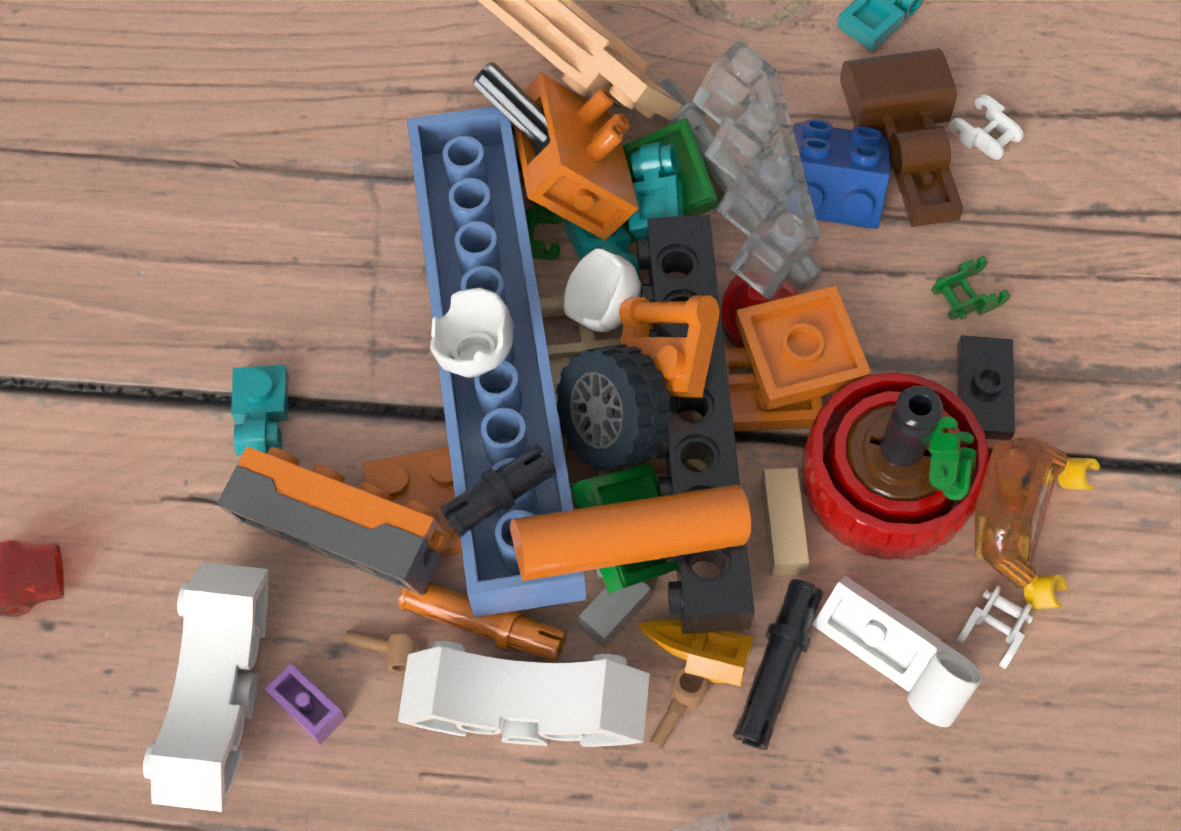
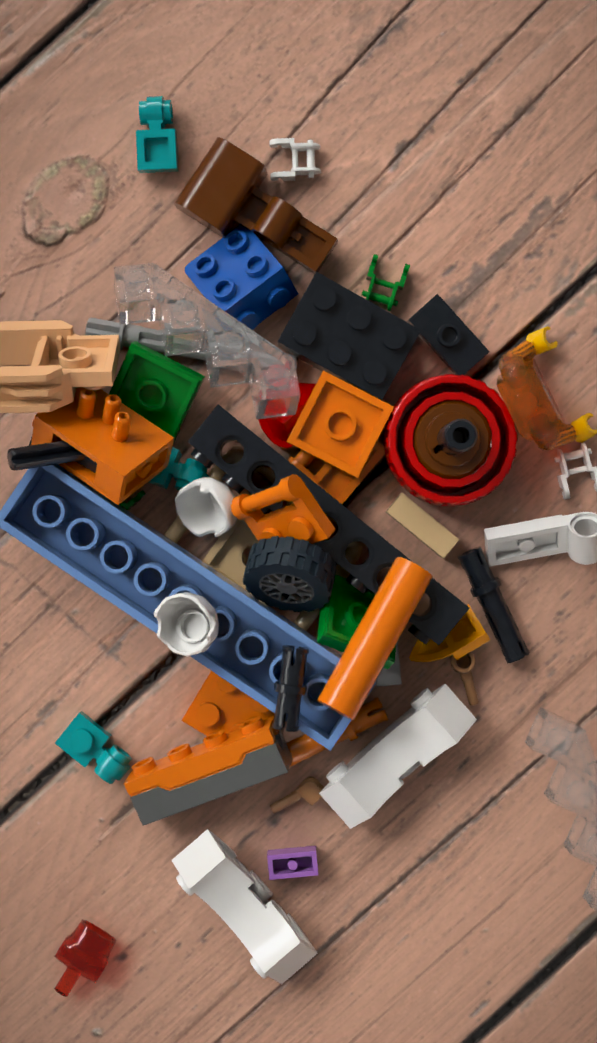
camera: 45 degrees left, 25 degrees up
(658, 191) = (172, 416): teal plate -> none
(892, 290) = (348, 336): none -> black brick
(949, 463) = (490, 425): green piece -> none

